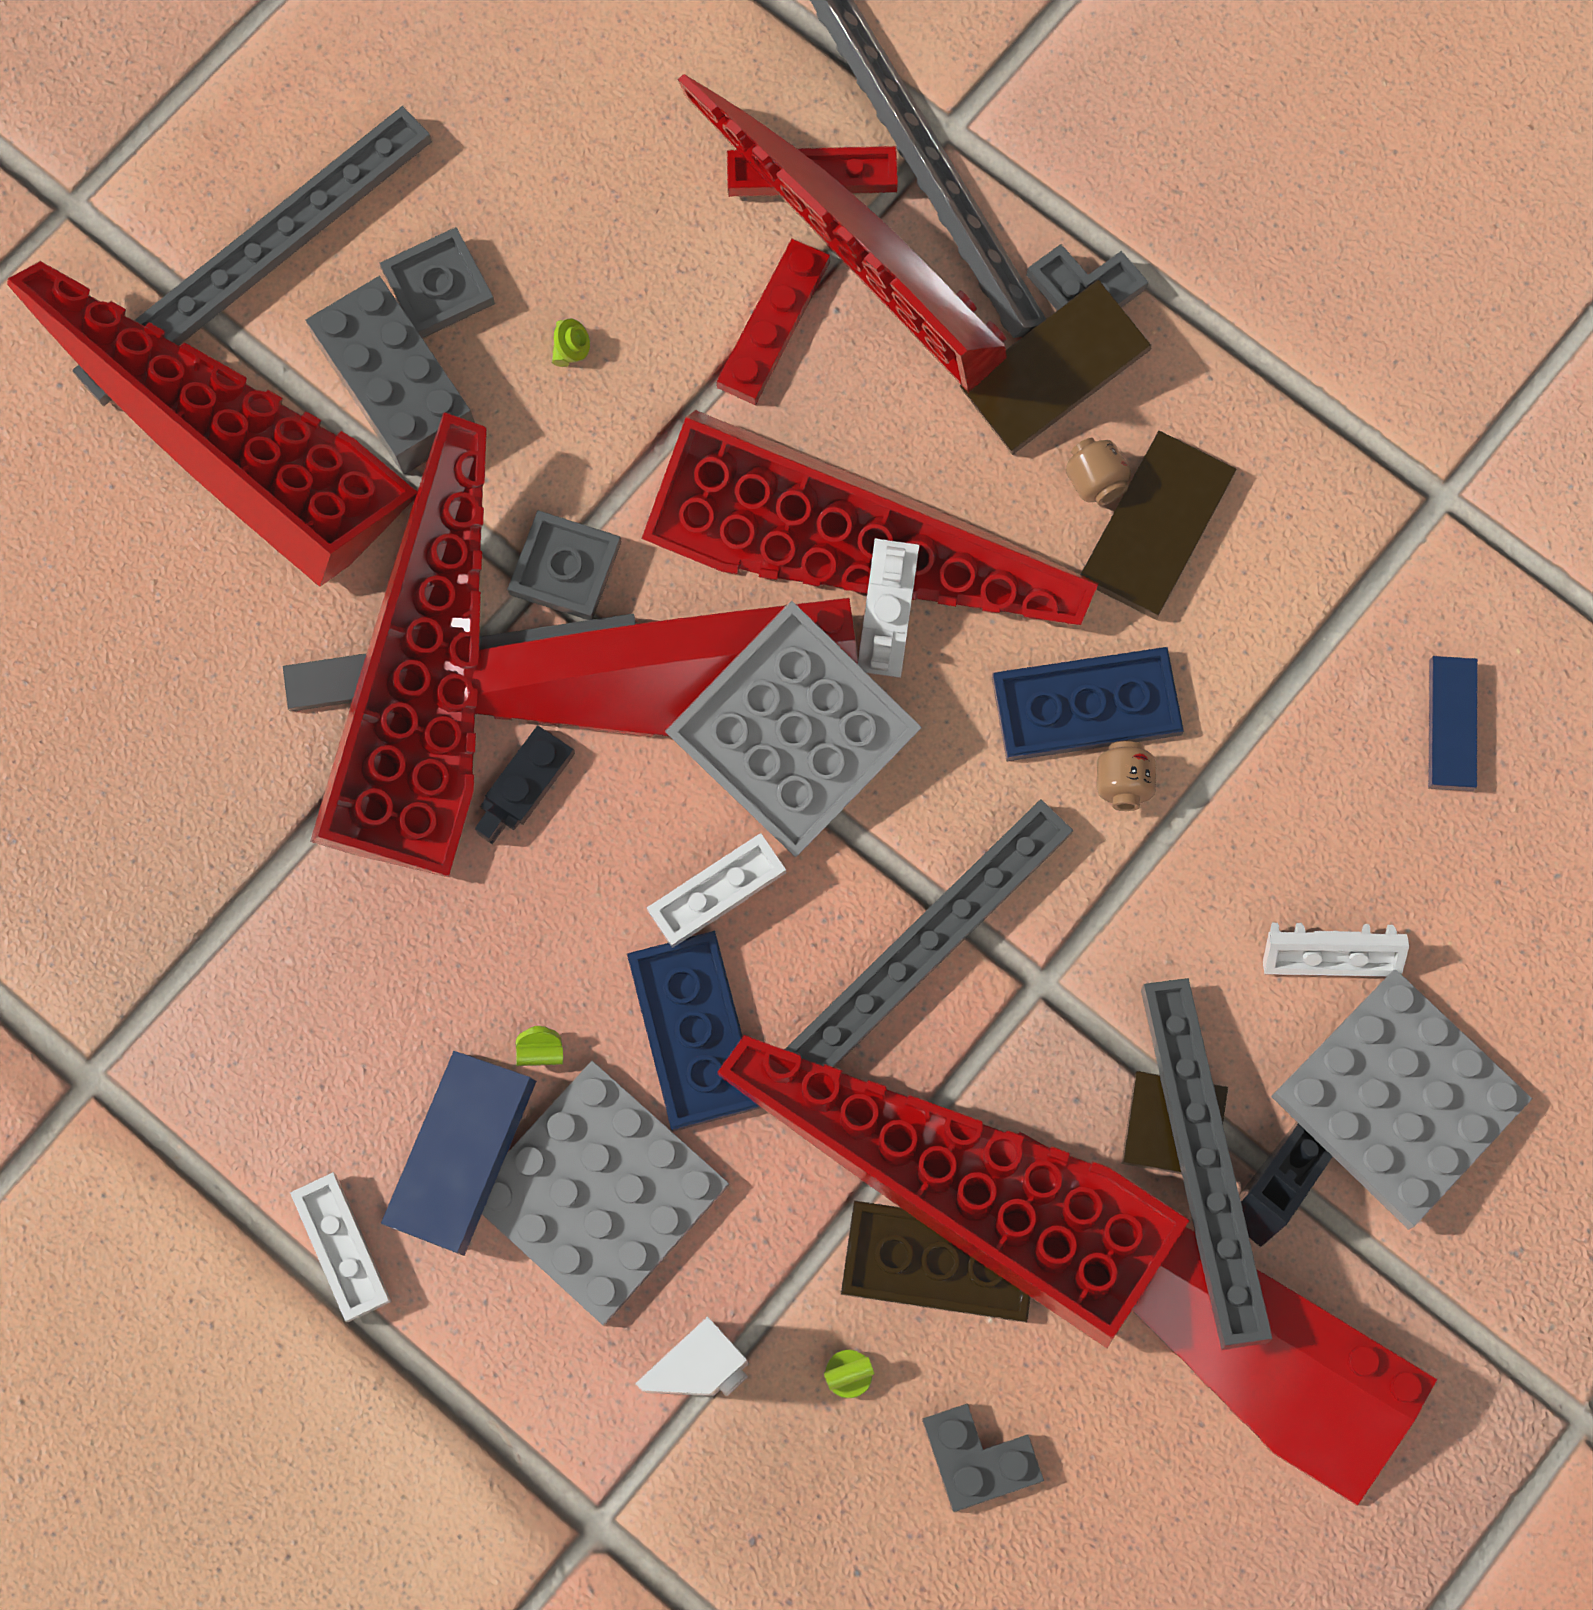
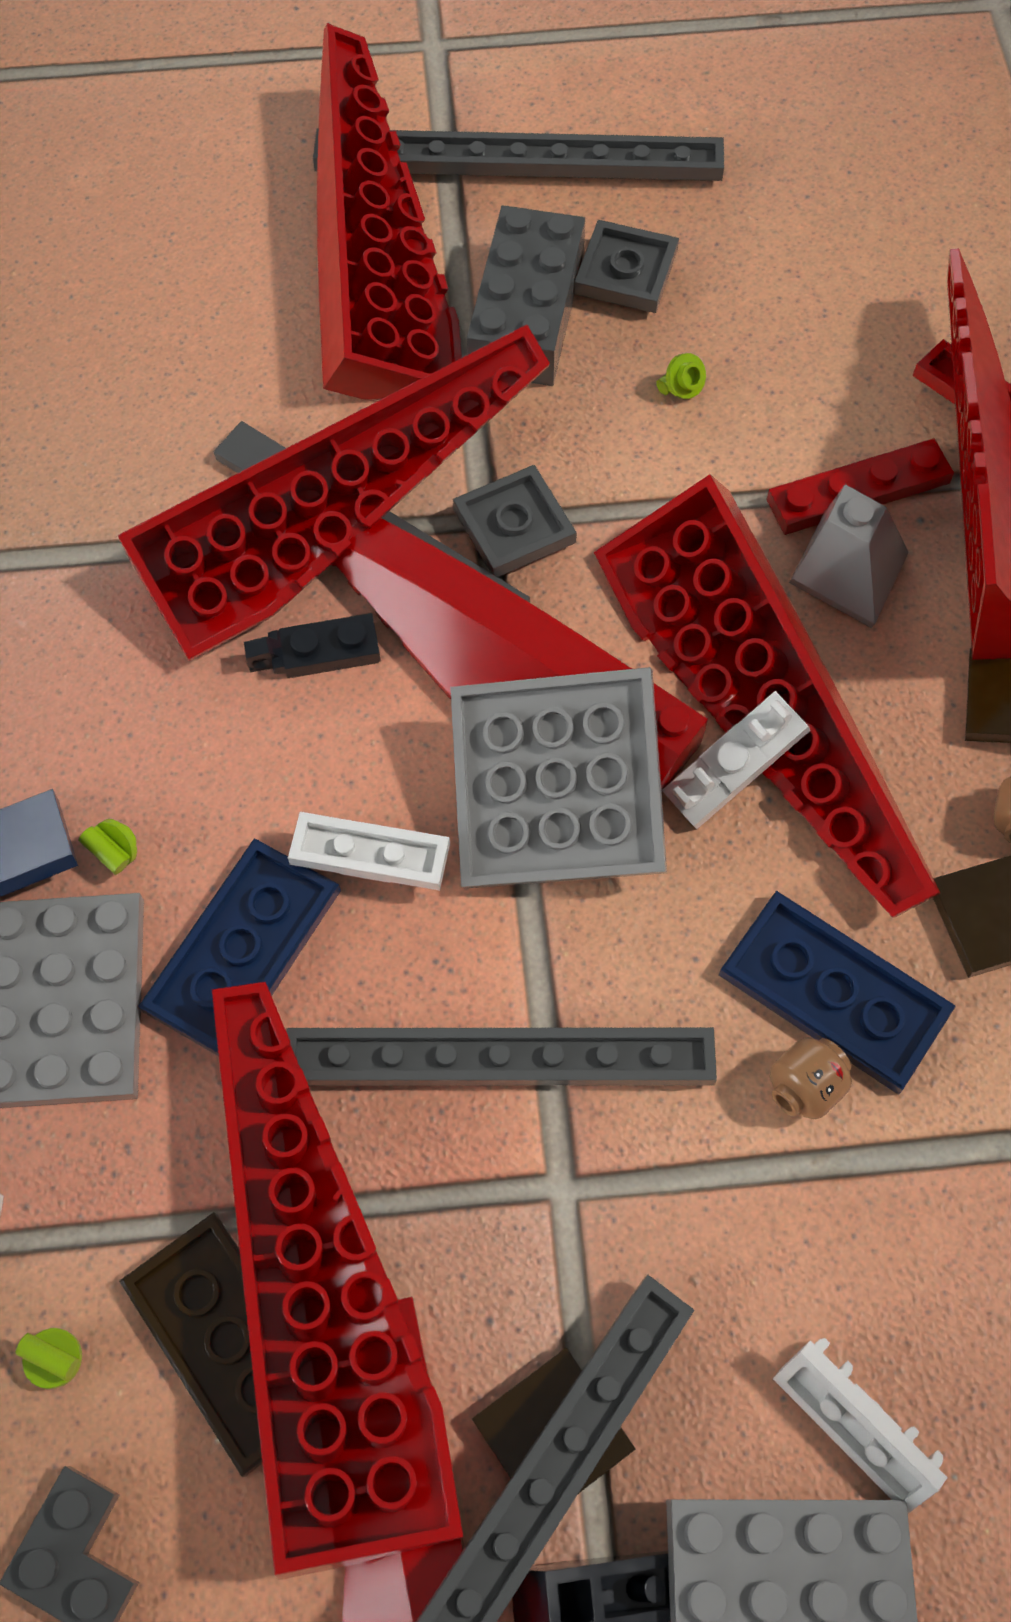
camera: 45 degrees right, 10 degrees down
(823, 387) = (852, 557): none -> light grey slope

